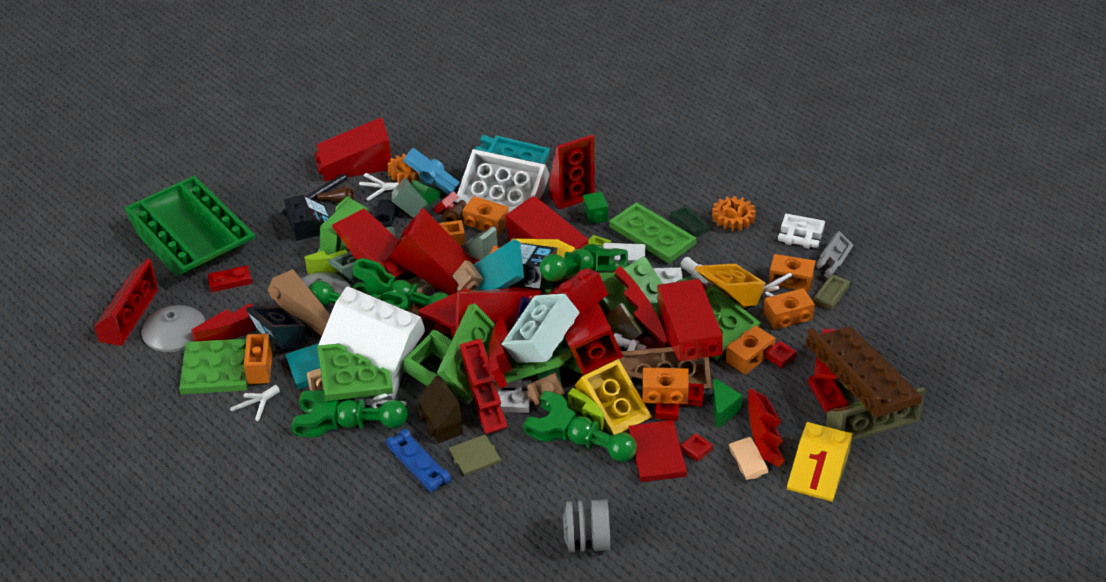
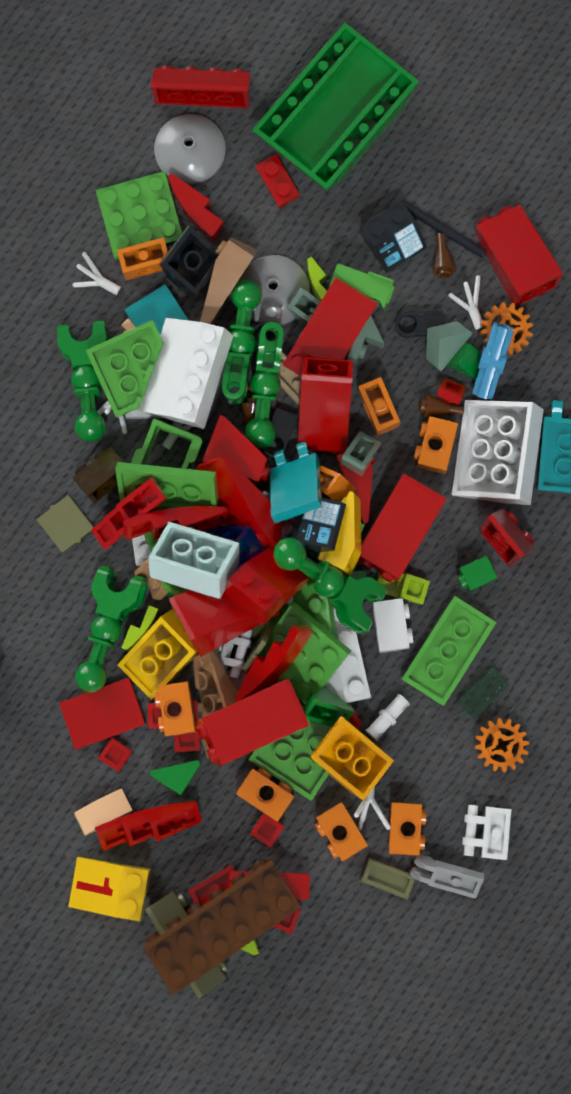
camera: 85 degrees right, 40 degrees up
(418, 461) = (43, 468): blue plate -> none
(467, 277) = (289, 457): medium nougat bracket -> none

